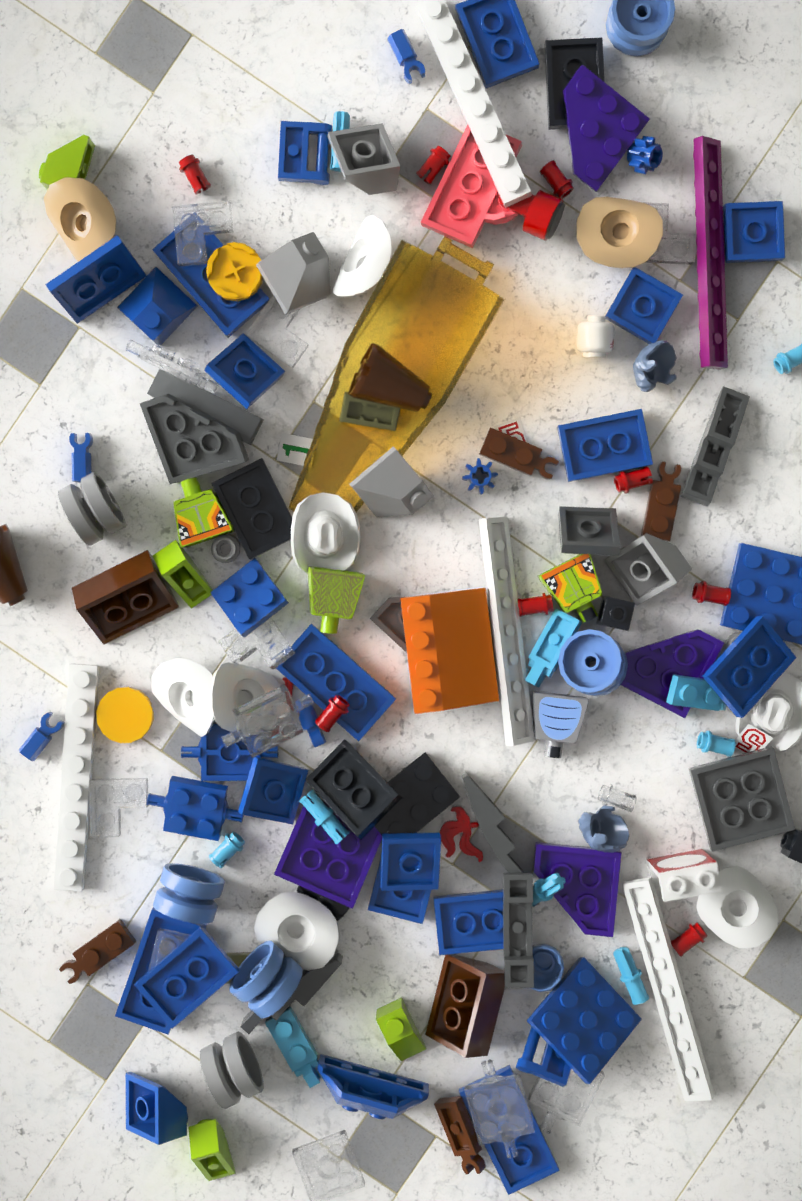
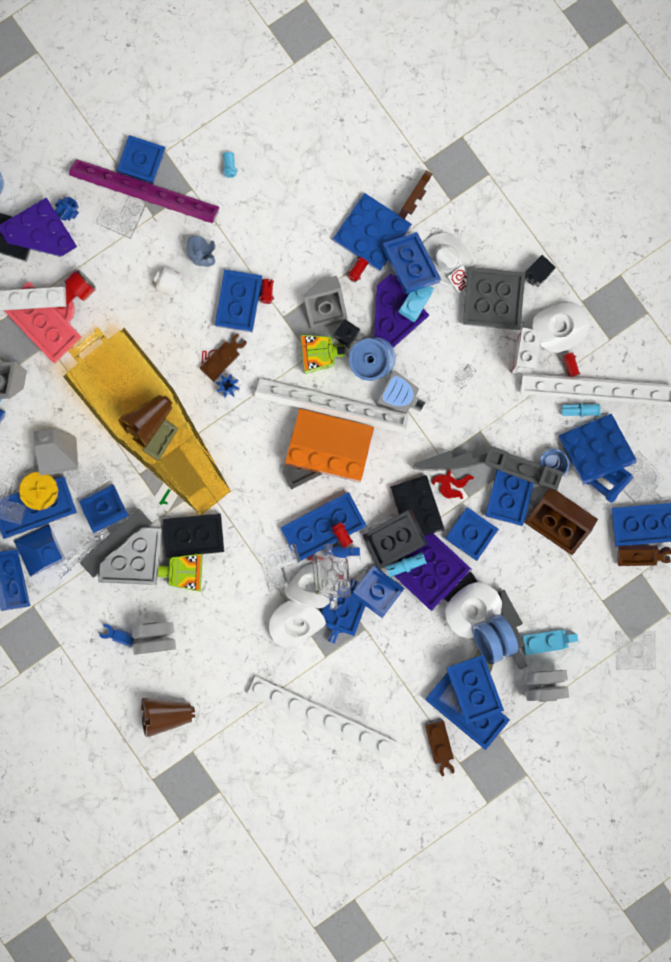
camera: 70 degrees left, 5 degrees down
(40, 738) = (287, 731): blue bar -> none
(124, 597) = (218, 640): reddish brown slope -> none
(125, 715) = (293, 670): yellow tile -> none
(153, 1111) = (554, 748): blue slope -> none
(182, 574) = (217, 597): lime slope -> none
(188, 893) = (425, 671): medium blue wheel -> none
(195, 808) = (370, 647): blue plate -> none
(210, 1149) = (596, 721): lime slope -> none
(216, 548) = (207, 560): light grey plate -> none
(232, 843) = (405, 637): medium azure pin -> none
(249, 597) = (248, 560): blue plate -> none
(325, 533) = (227, 497): white hat -> none
(333, 595) = (267, 506): lime torso -> none
(365, 260) = (64, 405): white hat -> none
(370, 1089) = (593, 603): blue wedge -> none
(391, 486) = (213, 443): light grey slope -> none
(399, 1029) = (563, 569): lime slope -> none
(410, 861) = (454, 519): blue plate -> none
(435, 162) = (20, 341): red pin -> none
(499, 1109) = (634, 523): clear plate -> none
(535, 605) = (322, 382): red pin -> none
(546, 888) = (504, 441): medium azure axle -> none
(547, 649) = (354, 385): medium azure hinge -> none
(557, 180) = (60, 268): red pin -> none
(589, 530) = (288, 330): dark grey plate -> none
(589, 886) = (510, 419): dark purple plate -> none
(604, 830) = (481, 391): sand blue hair -> none
(619, 231) = (108, 242): tan hat -> none
(643, 306) = (160, 244): blue plate -> none
(662, 504) = (289, 279): reddish brown plate -> none
(715, 446) = (265, 232): dark grey slope -> none
(716, 744) = (452, 303): medium azure pin -> none

